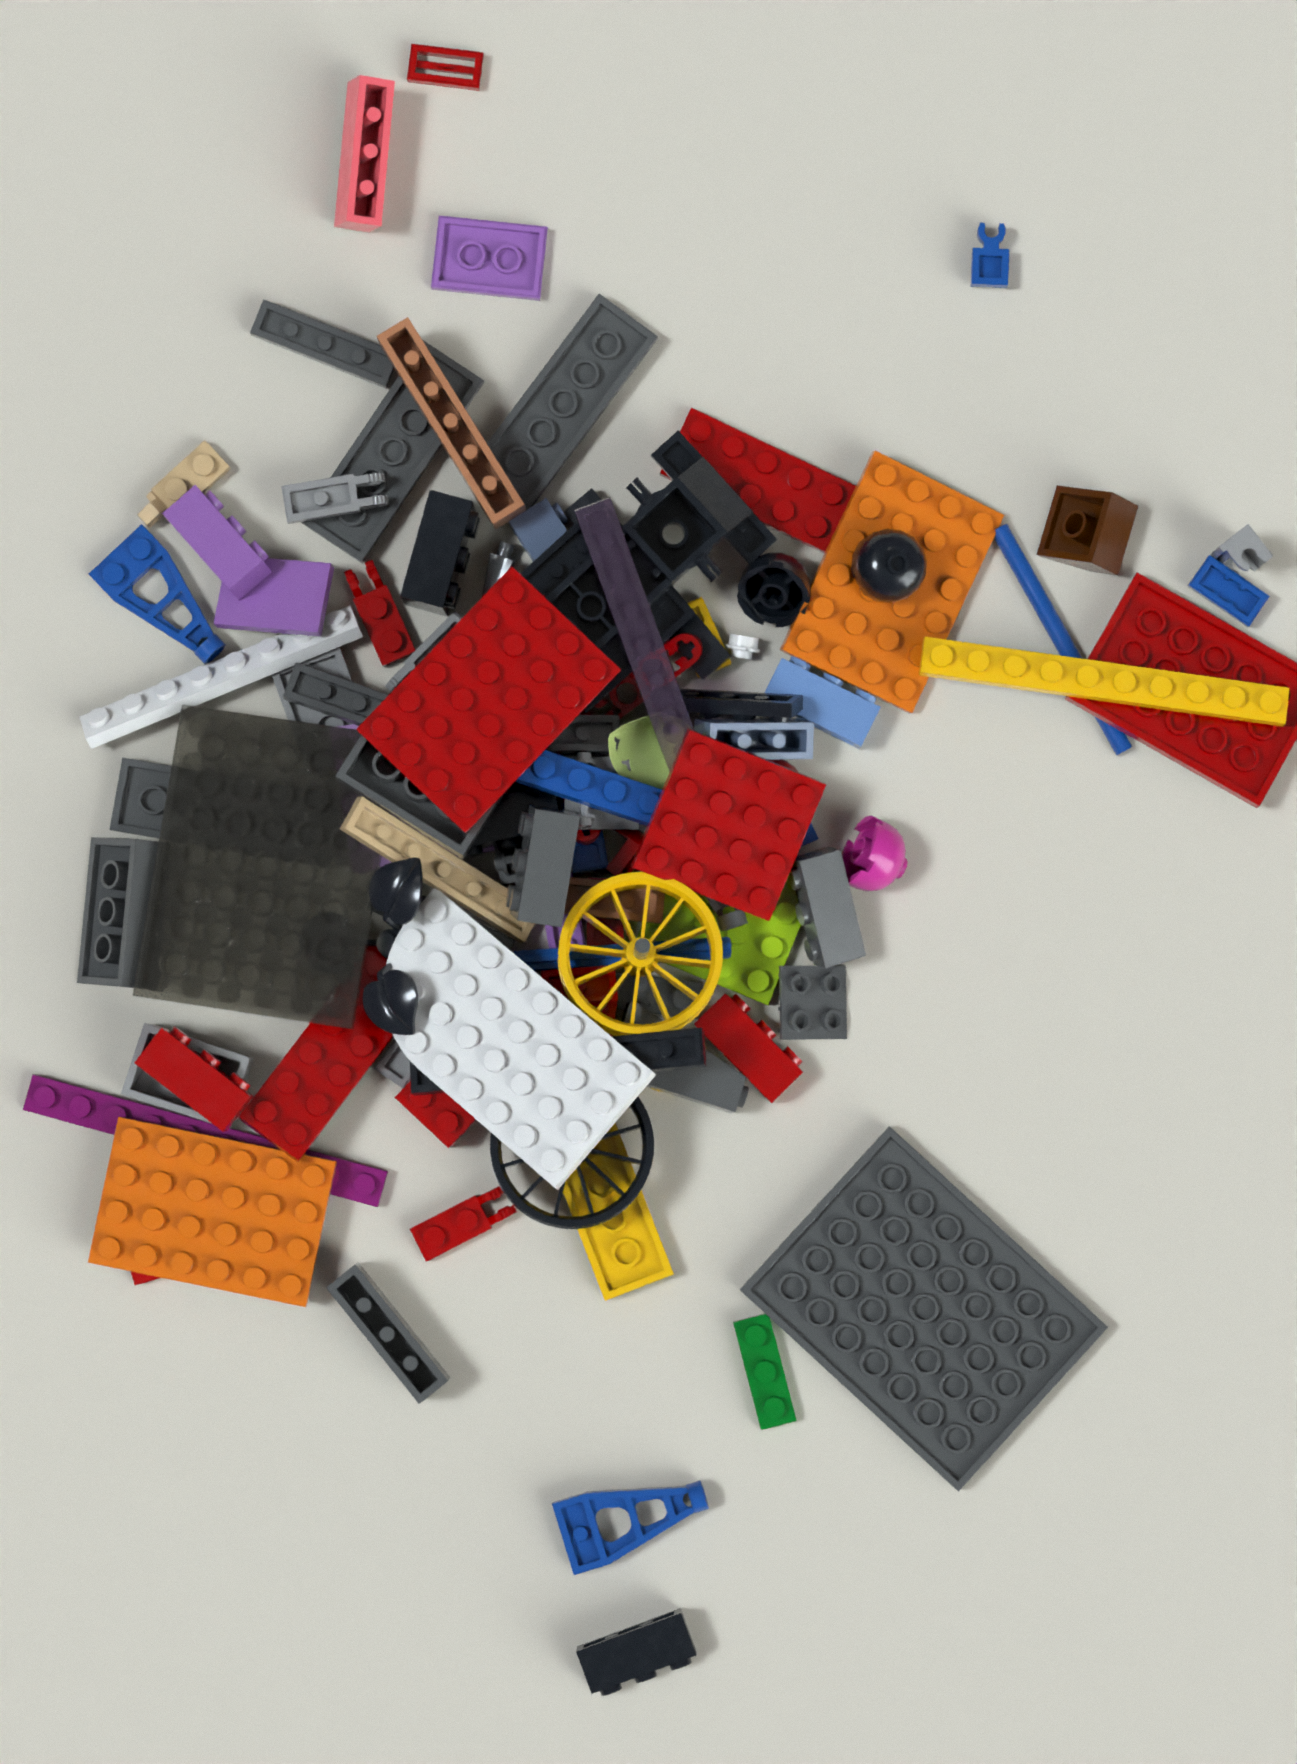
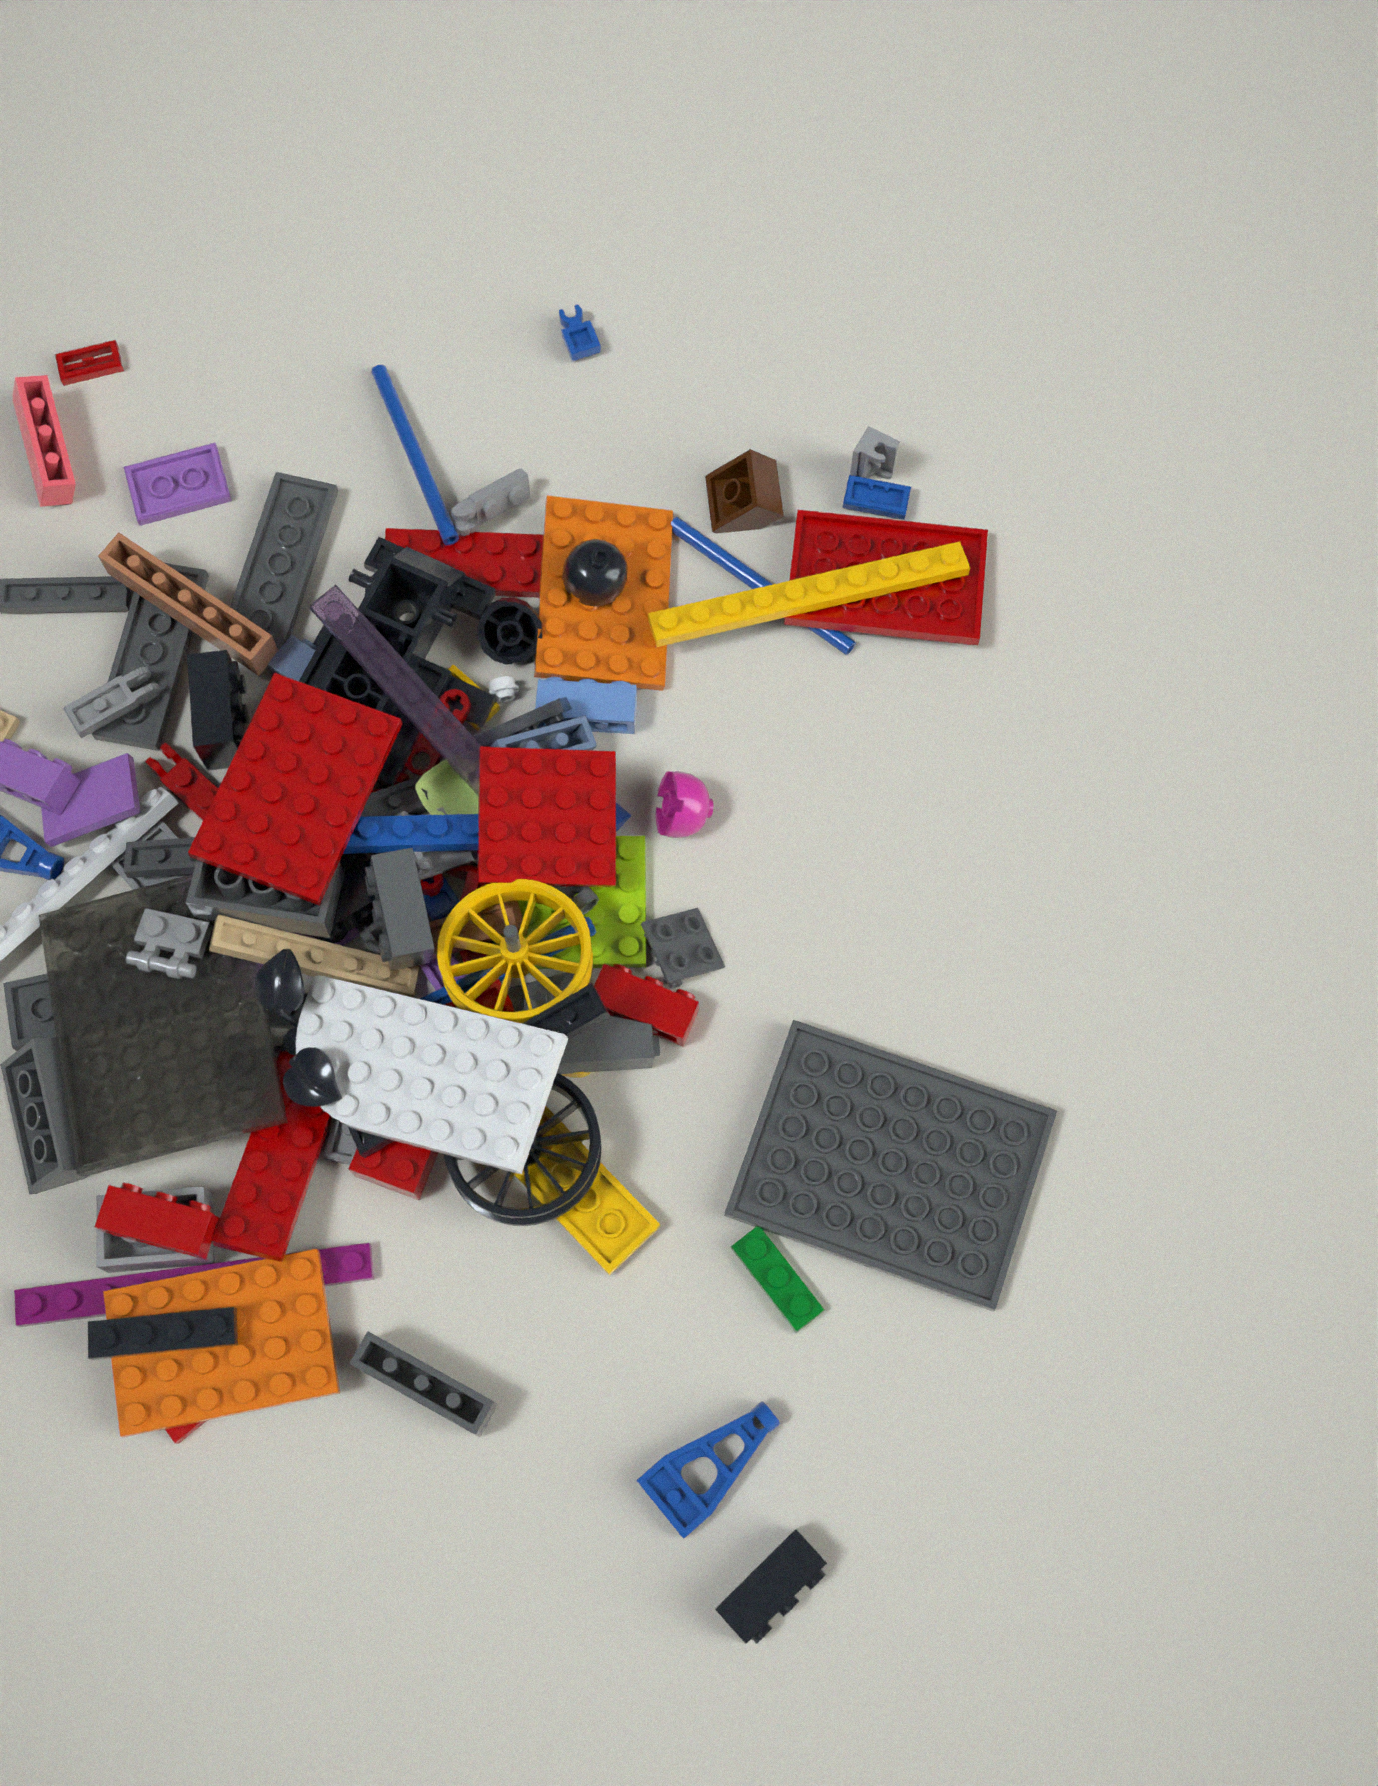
camera: 25 degrees left, 15 degrees down
(161, 1184) = (162, 1333): none -> black plate
(309, 788) = (173, 934): none -> light grey plate
(458, 1224) = (452, 1262): red hinge -> none
(755, 333) = (415, 455): none -> blue piece
(813, 429) = (491, 501): none -> light grey hinge
(826, 908) = (660, 860): brick -> none

